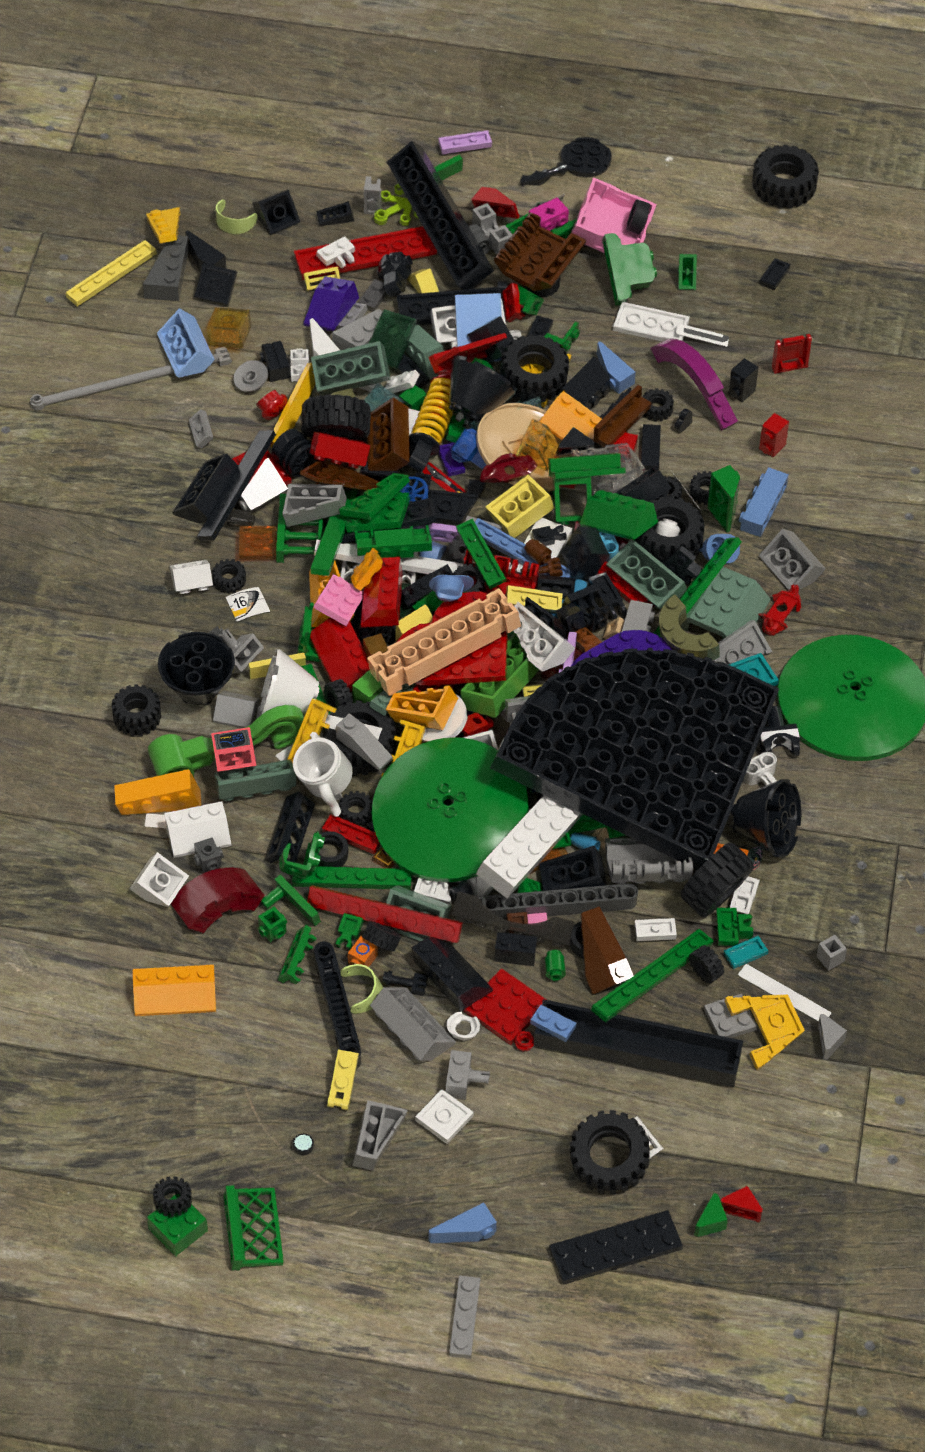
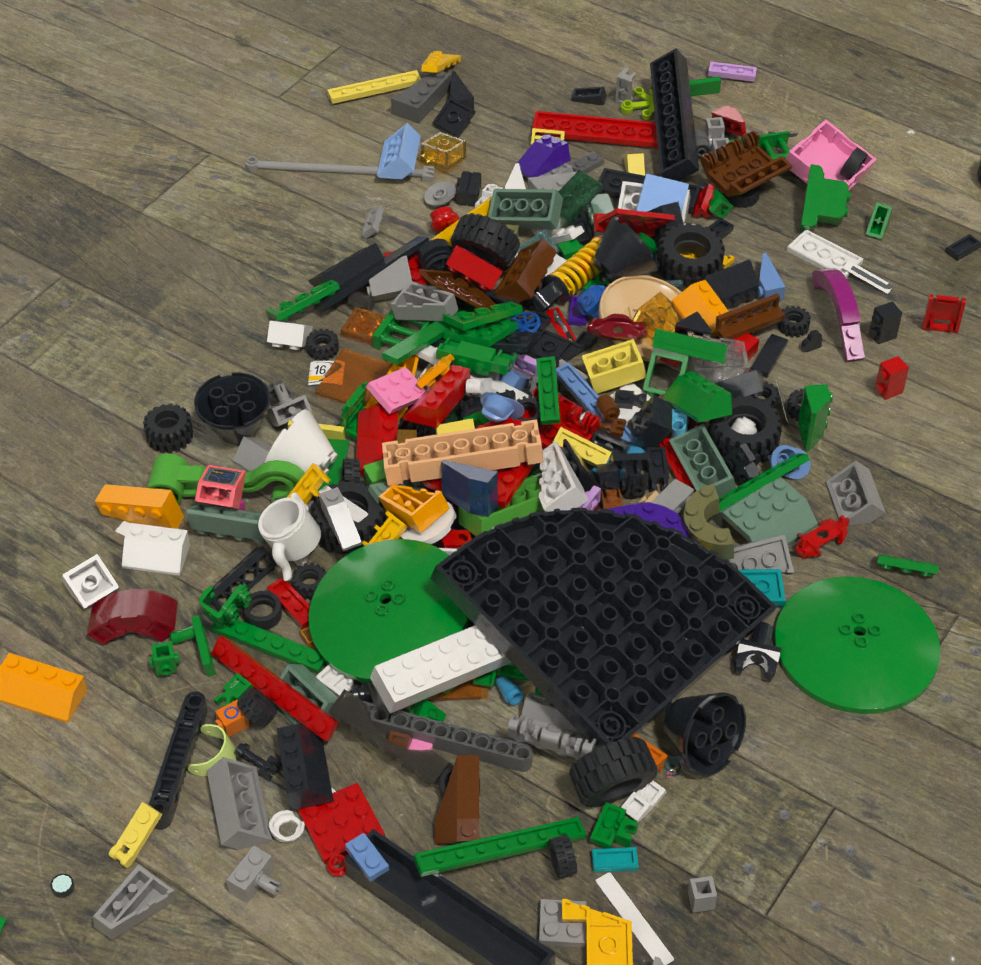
camera: 25 degrees right, 5 degrees down
(175, 552) = (303, 300): none -> green wing
(208, 855) = (148, 574): dark grey brick -> none
(233, 226) = (500, 80): yellowish green piece -> none
(276, 211) = (539, 78): black slope -> none
(277, 599) = (348, 373): none -> clear orange piece
(296, 955) = (170, 697): green plate -> none
(336, 251) = (571, 119): white hinge -> none
(394, 270) = (611, 148): black piece -> none
(411, 570) = (478, 386): none -> white leg
(444, 1116) = (213, 912): white plate -> none
(468, 672) = (470, 487): none -> dark blue slope
(515, 949) = (380, 768): black brick -> none
(539, 177) = (784, 115): black piece -> none
(552, 214) = (774, 141): dark pink brick -> none
(555, 965) = (411, 799): green brick -> none
(567, 341) = (737, 245): green bracket -> none
(573, 870) = (481, 712): black slope -> none
(586, 157) = (836, 109): black tile -> none
(655, 929) = (532, 801): white plate -> none
(759, 771) = (726, 679): white beam -> none
(764, 502) = (853, 434): medium blue brick -> none
(864, 611) = (907, 565): none -> green plate

